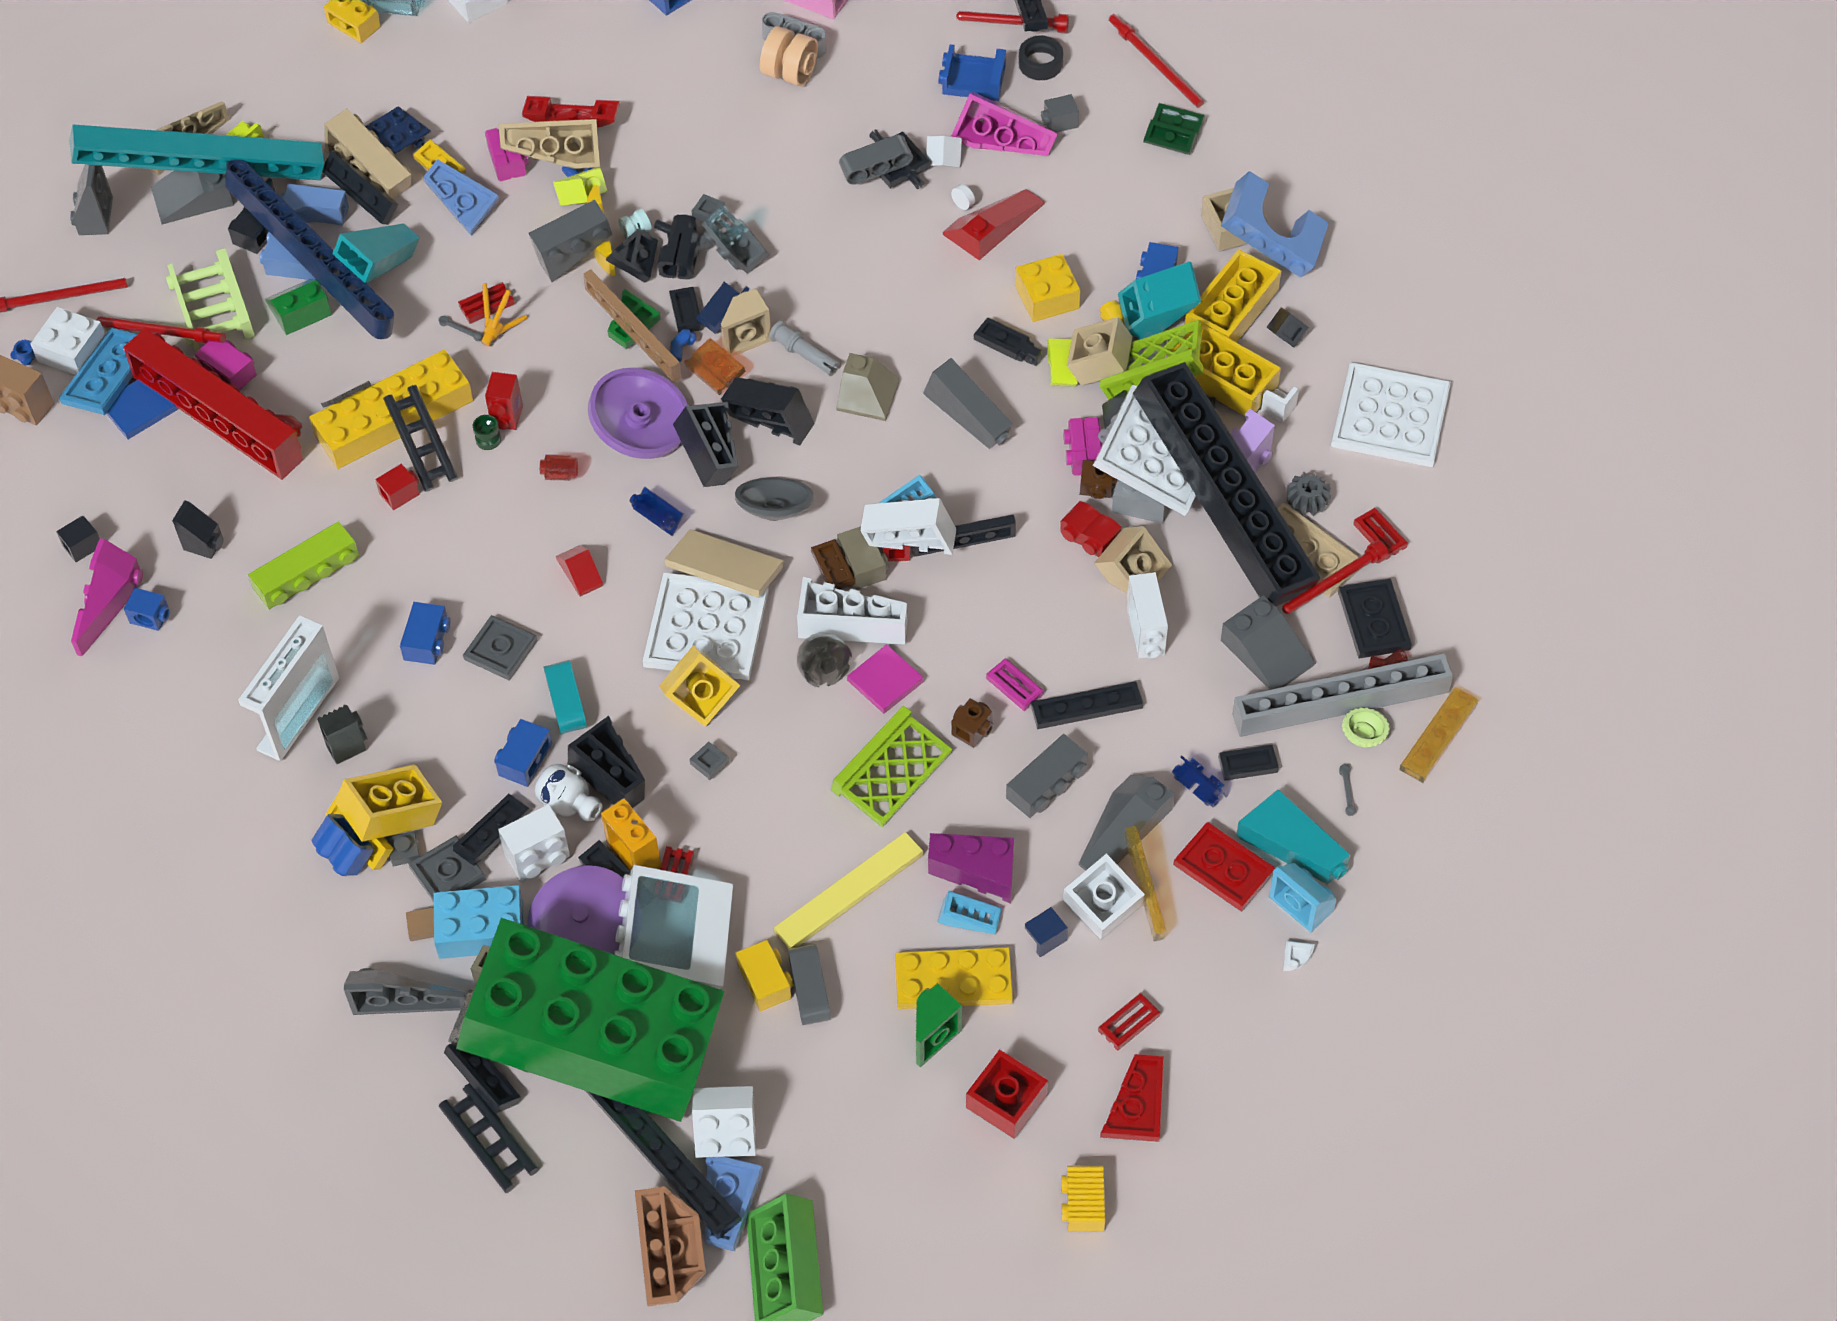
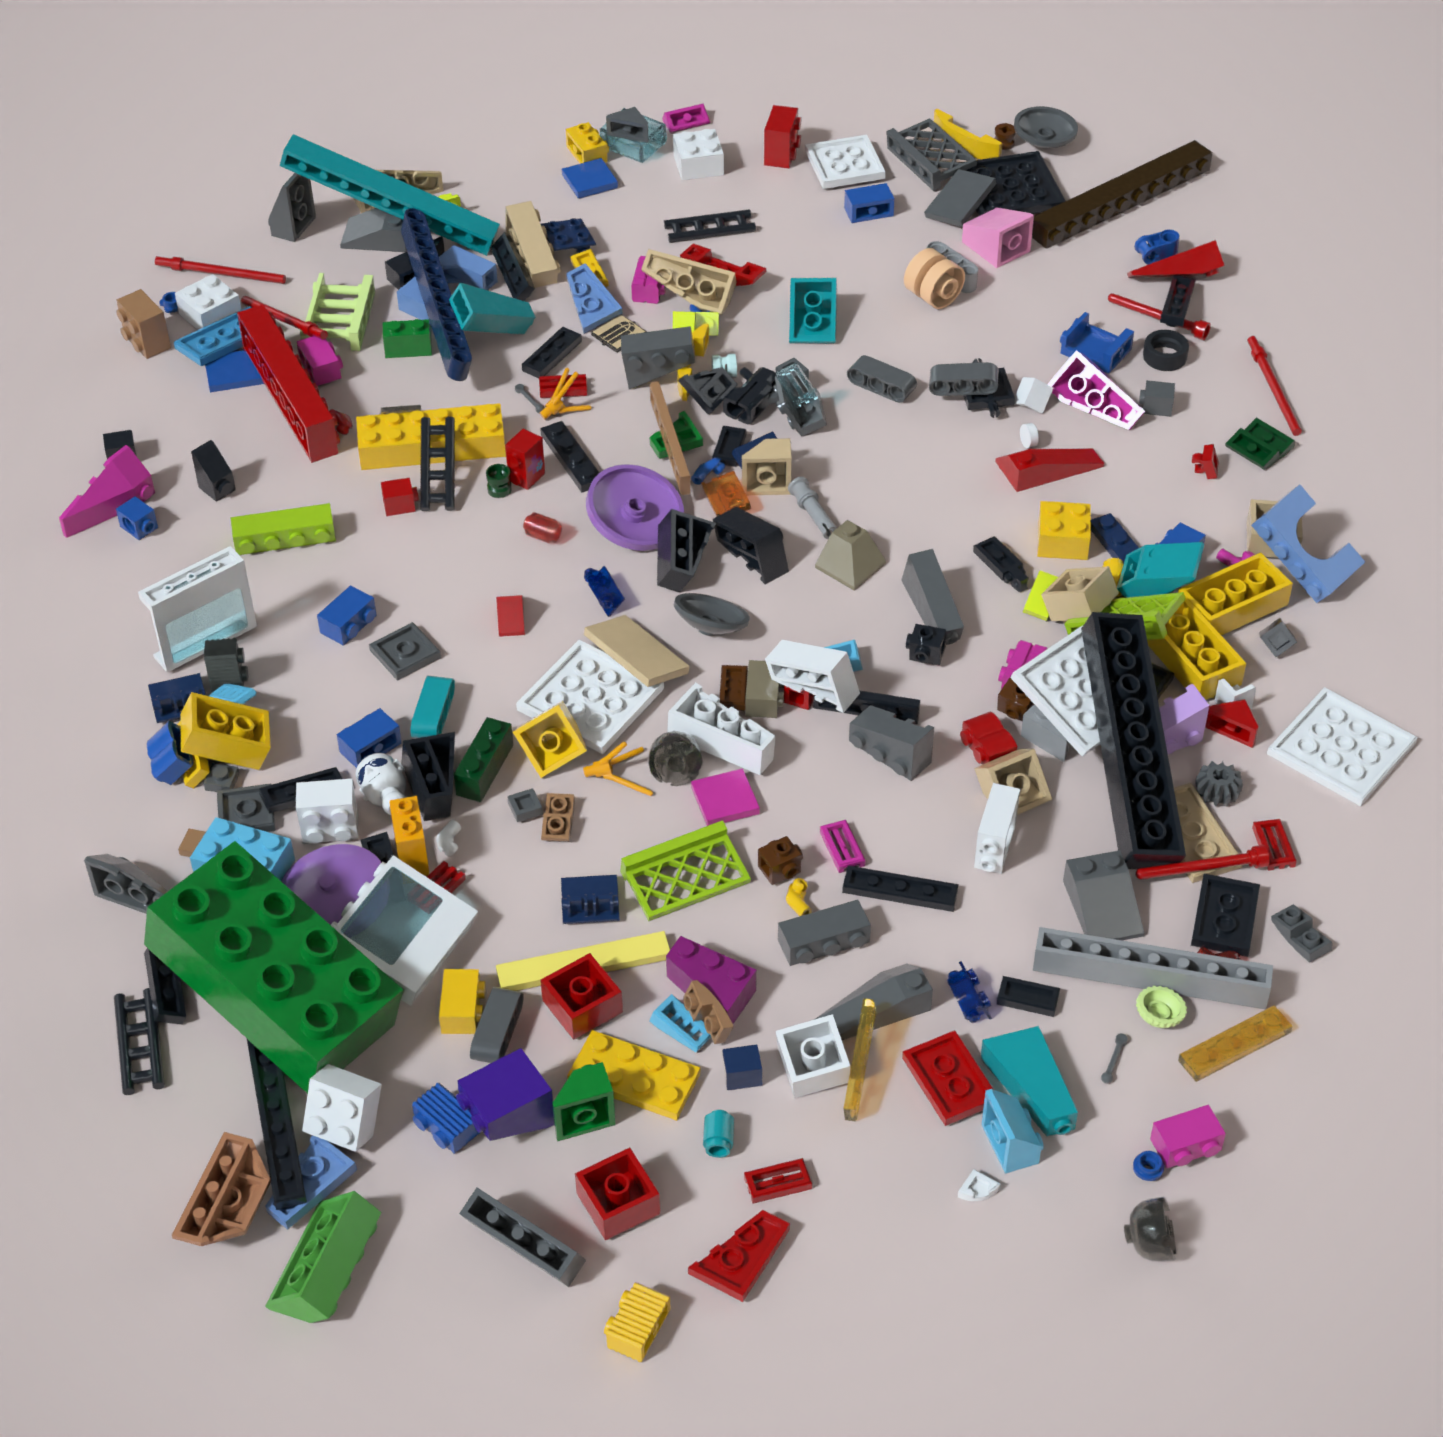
camera: 25 degrees right, 10 degrees down
(309, 783) = (171, 696): none -> dark blue hinge
(366, 762) = (234, 693): none -> medium azure slope
(375, 53) = (589, 178): none -> blue tile
(455, 270) = (551, 352): none -> black plate
(506, 223) = (611, 332): none -> piece
(531, 56) = (717, 218): none -> black bar
(540, 378) = (570, 454): none -> black plate
(646, 730) = (483, 759): none -> dark green brick
(654, 822) = (445, 838): none -> white arm
(688, 132) = (813, 310): none -> teal slope
(745, 760) = (558, 817): none -> medium nougat slope
(760, 694) = (604, 768): none -> light orange plant
(793, 184) = (881, 378): none -> dark grey beam
(815, 1090) = (444, 1118): none -> blue brick
(820, 828) = (590, 899): none -> dark blue hinge
(866, 1049) = (507, 1097): none -> dark purple slope
(871, 925) = (581, 996): none -> red brick
(948, 1168) = (522, 1237): none -> dark grey brick
(986, 454) = (926, 644): none -> black brick
(986, 889) = (706, 1007): none -> medium nougat slope
(1001, 751) = (796, 895): none -> yellow arm
(1007, 564) = (893, 741): none -> dark grey wedge
(1058, 1001) = (718, 1133): none -> teal brick
(1096, 278) = (1112, 536): none -> dark blue plate
(1137, 167) = (1208, 460): none -> red tile
(1212, 262) = (1230, 559): none -> dark pink arm
(1294, 427) = (1233, 721): none -> red slope
(1424, 869) = (1151, 1159): none -> blue plate
(1440, 609) = (1300, 934): none -> dark grey slope
(1446, 838) = (1187, 1136): none -> dark pink brick
(1459, 933) = (1152, 1230): none -> clear smoke cylinder

